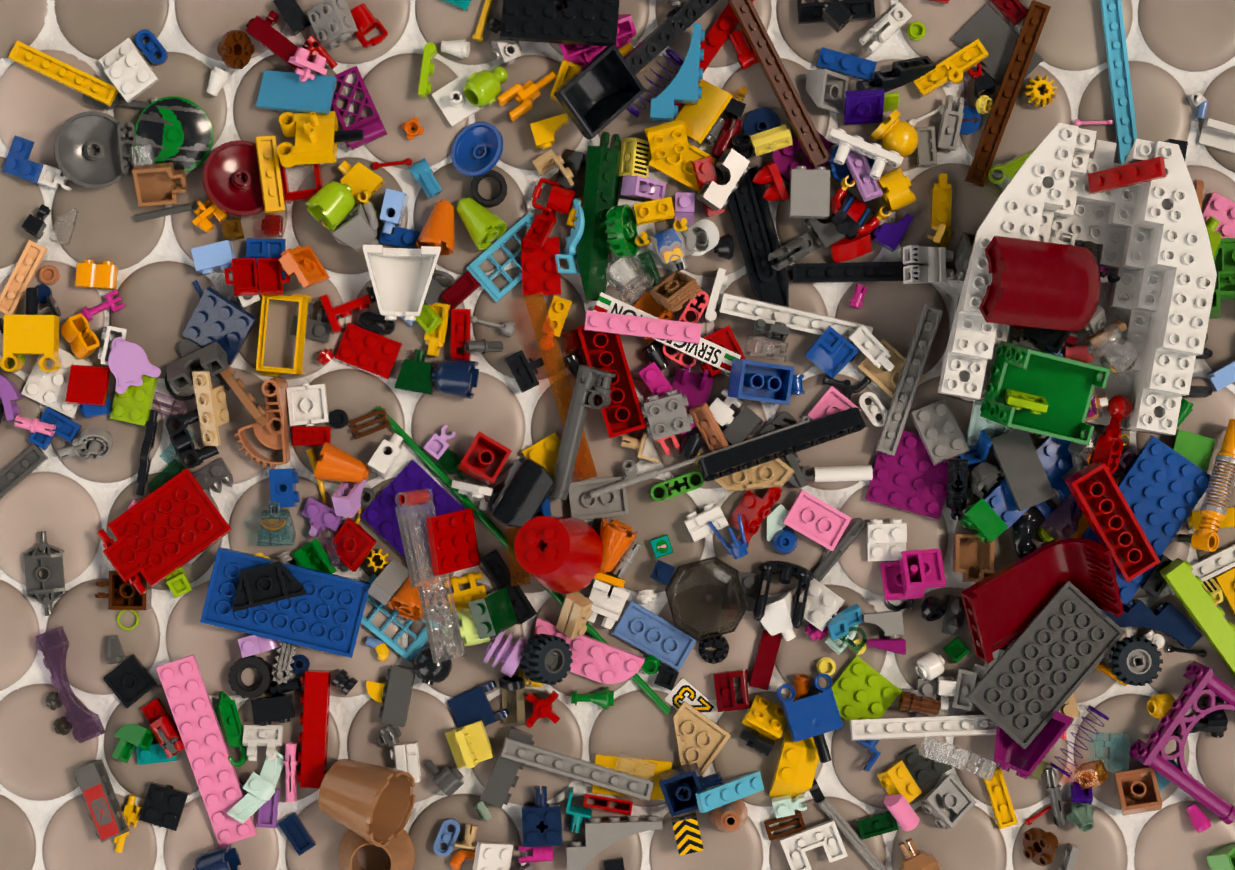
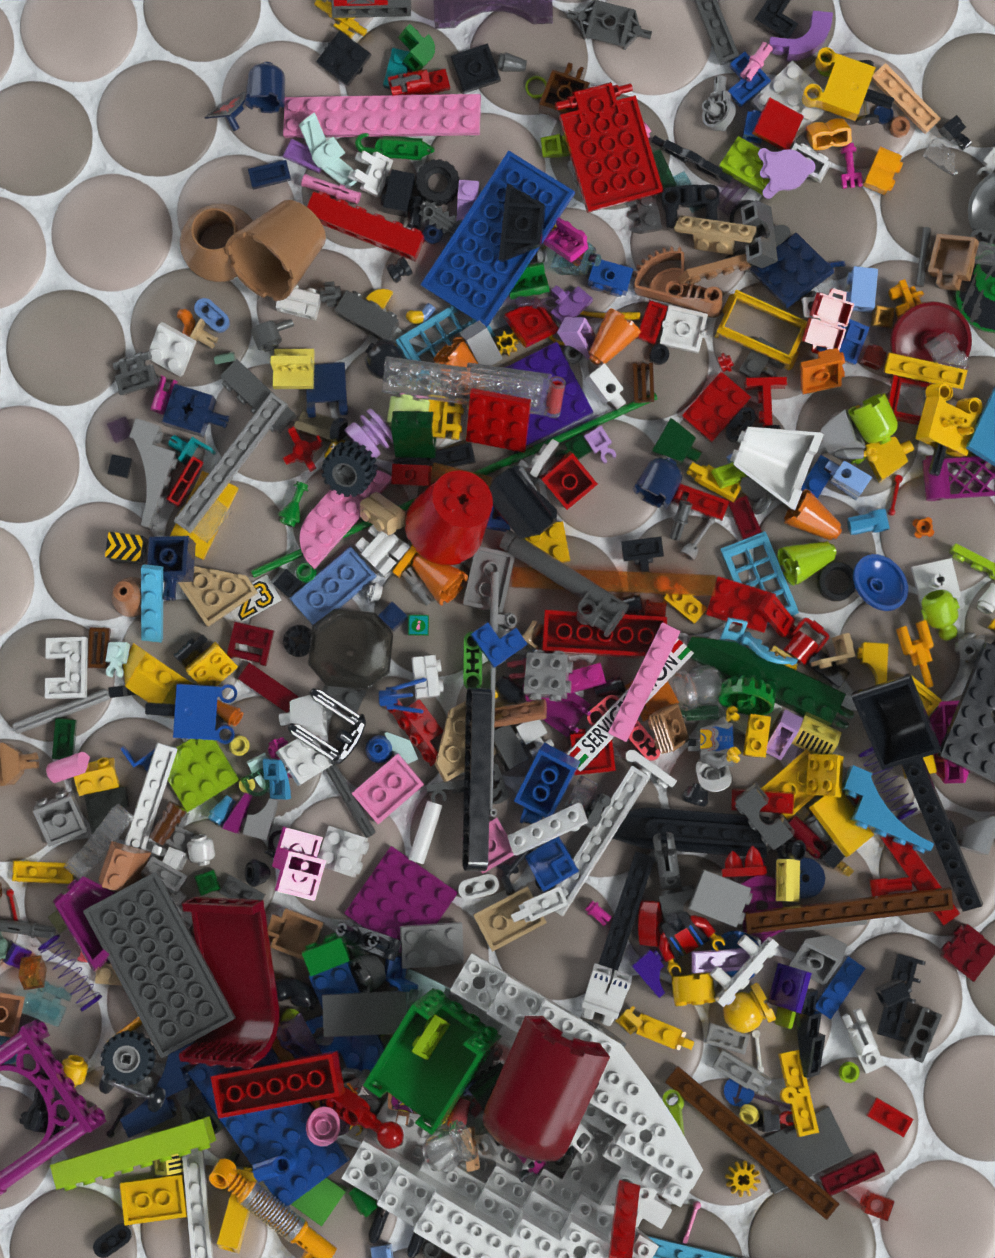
camera: 115 degrees right, 5 degrees down
(247, 161) = (945, 352): none -> clear slope
(266, 538) = (566, 240): none -> dark pink bracket
(529, 602) = (411, 474): none -> red plate
(660, 468) = (498, 649): none -> blue plate
(684, 207) = (749, 769): lavender arch -> none
(803, 366) = (547, 829): none -> white plate
(889, 660) = (221, 811): none -> dark azure cone
(909, 380) = (495, 933): light grey tile -> none
(972, 729) = (122, 866): none -> nougat slope
(1133, 468) = (323, 1126): none -> bright pink piece
(1162, 623) = (155, 1101): none -> black axle
(1182, 499) = (273, 1167): none -> blue piece

